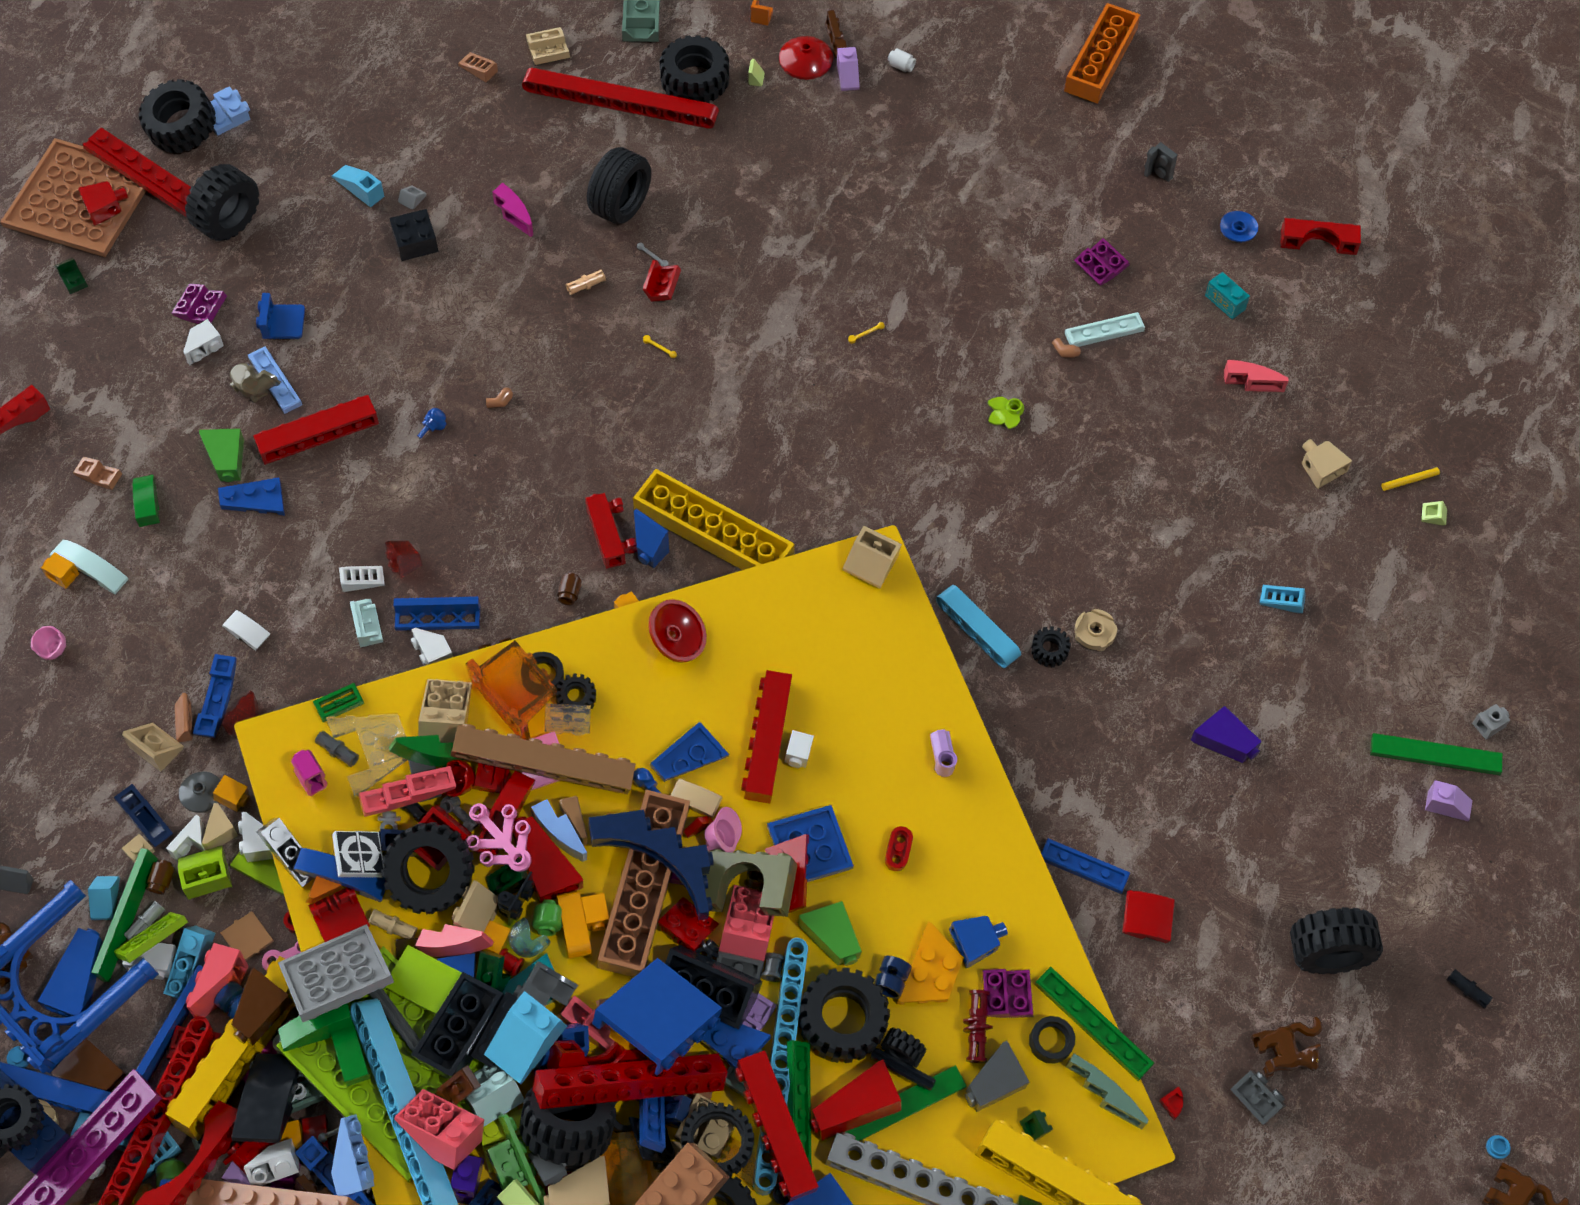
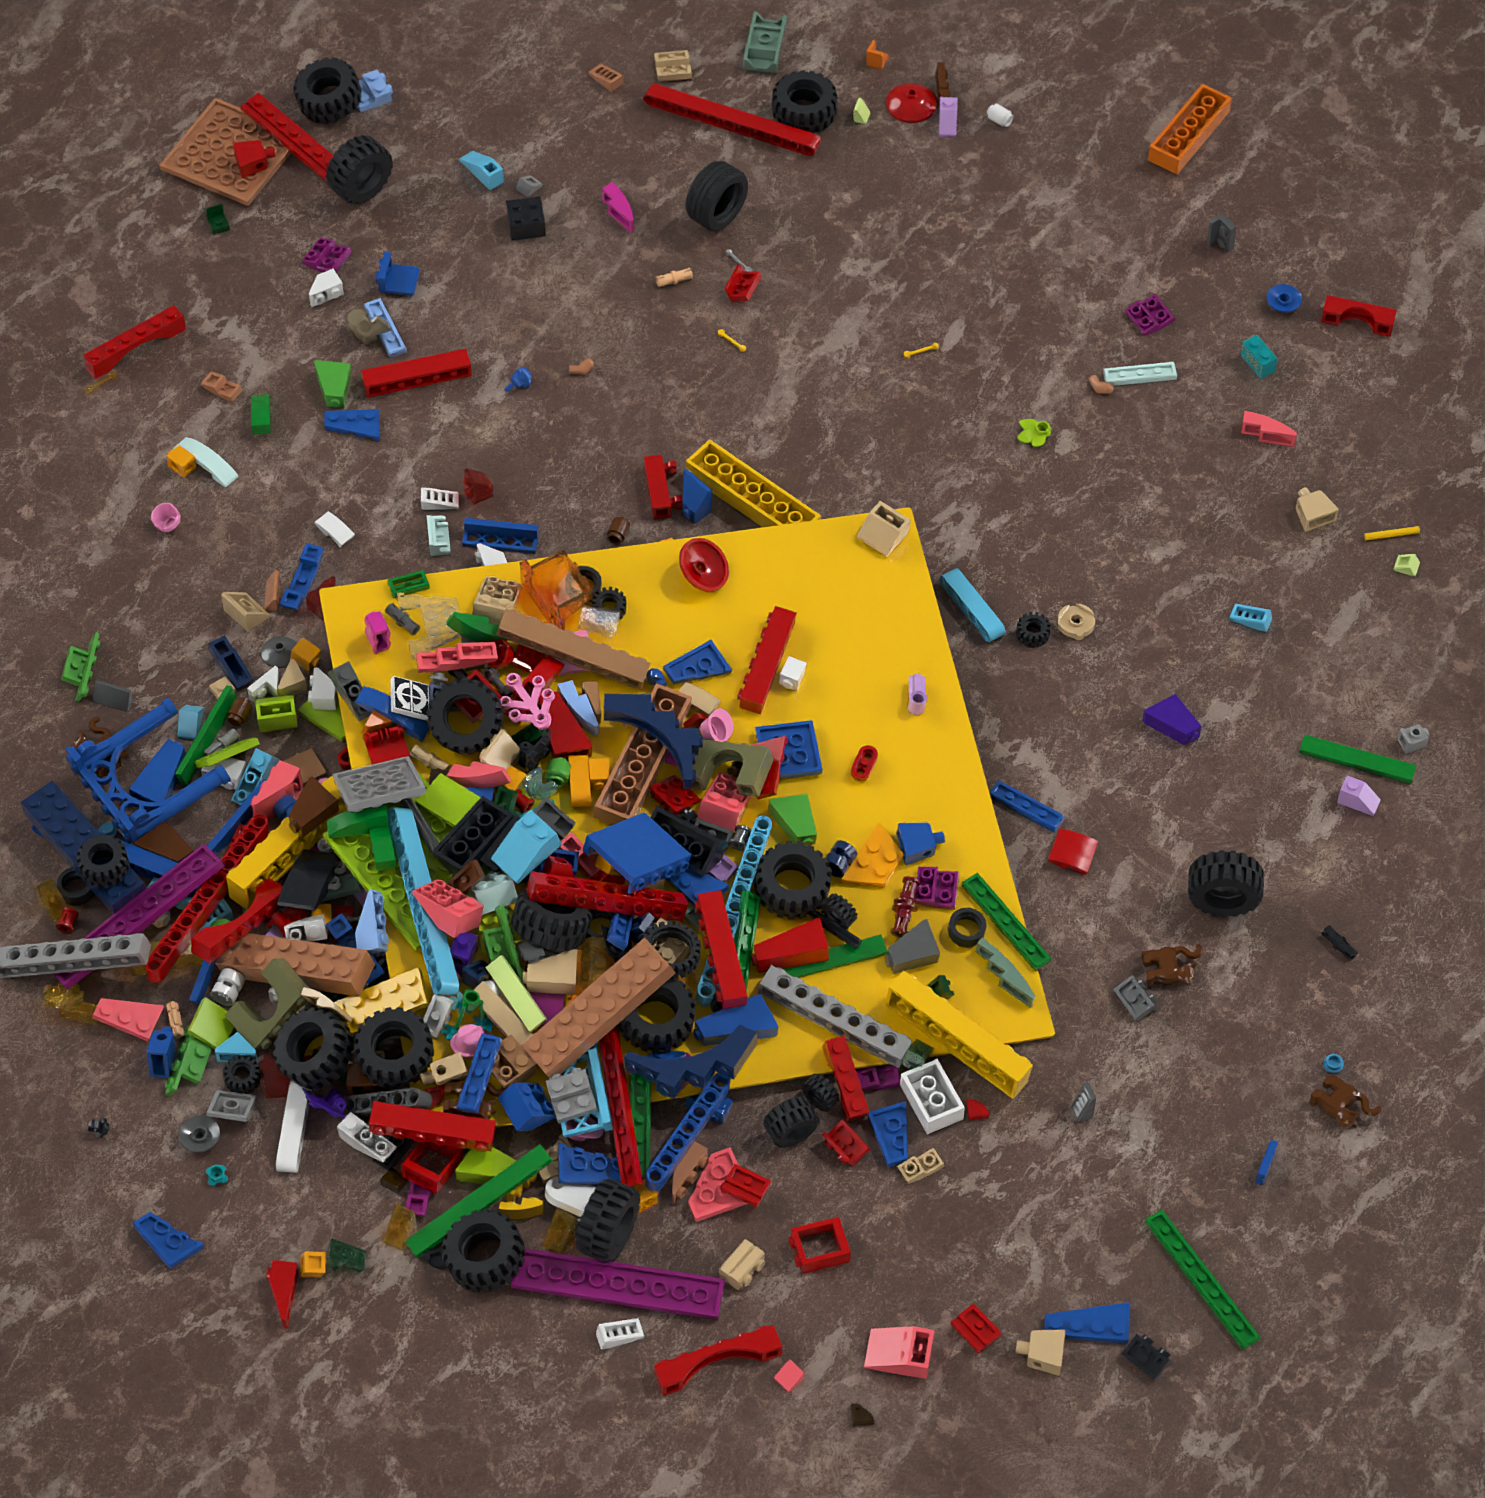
camera: 10 degrees right, 5 degrees down
(1173, 1102) = (1063, 994): red tile -> none

